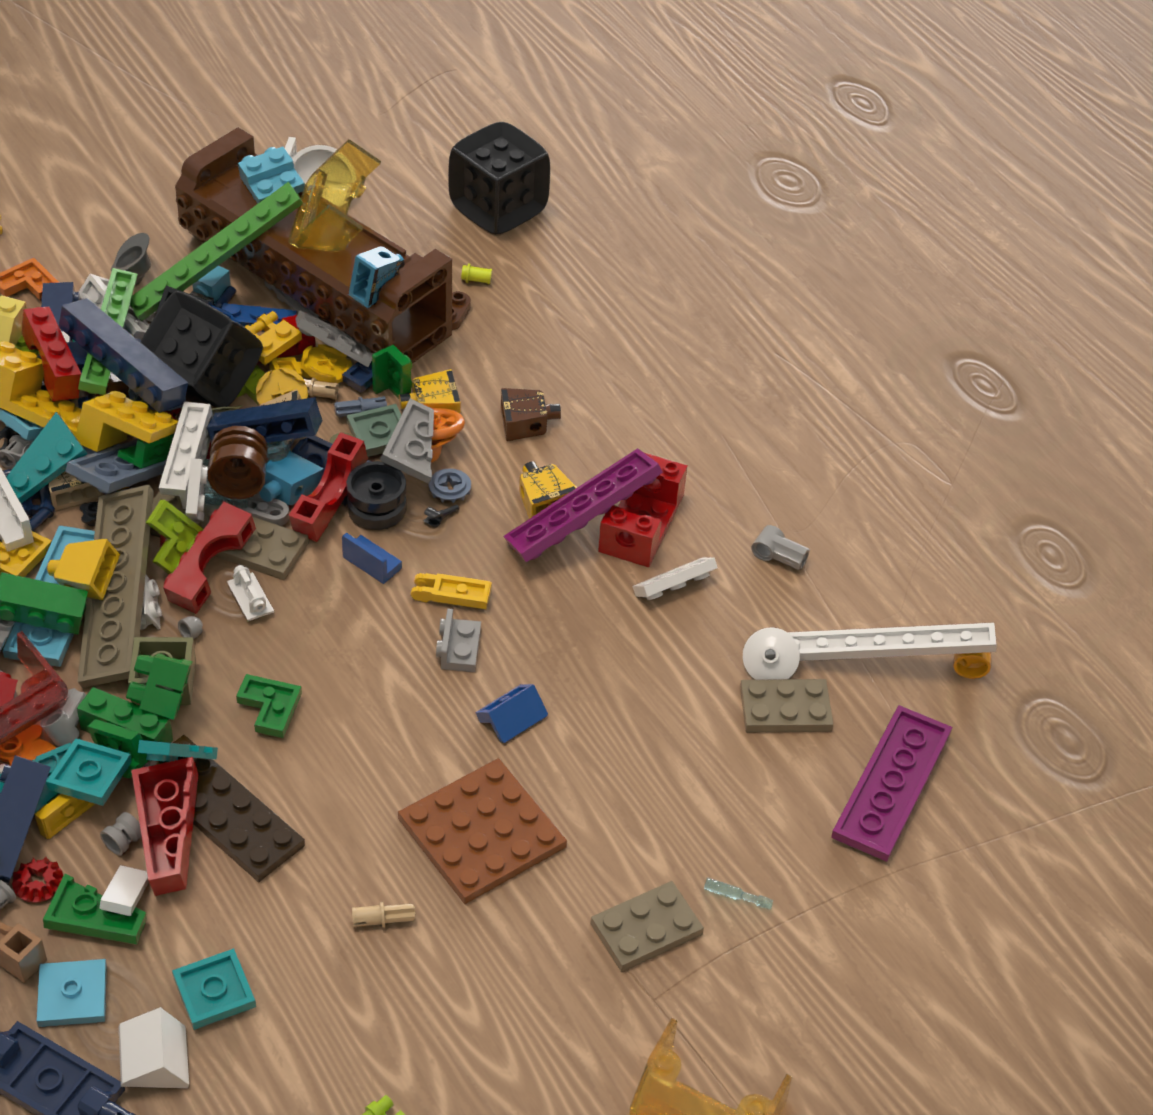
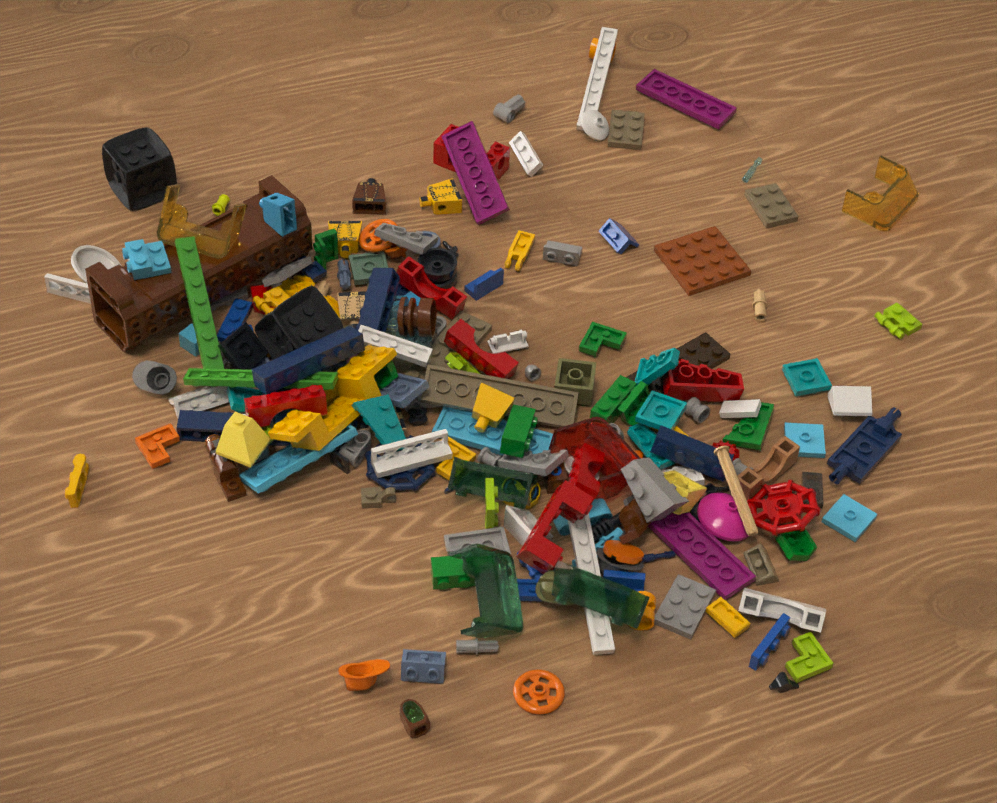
camera: 80 degrees left, 0 degrees up
(164, 684) = (602, 368): green hips -> none
(195, 497) = (438, 338): white plate -> none

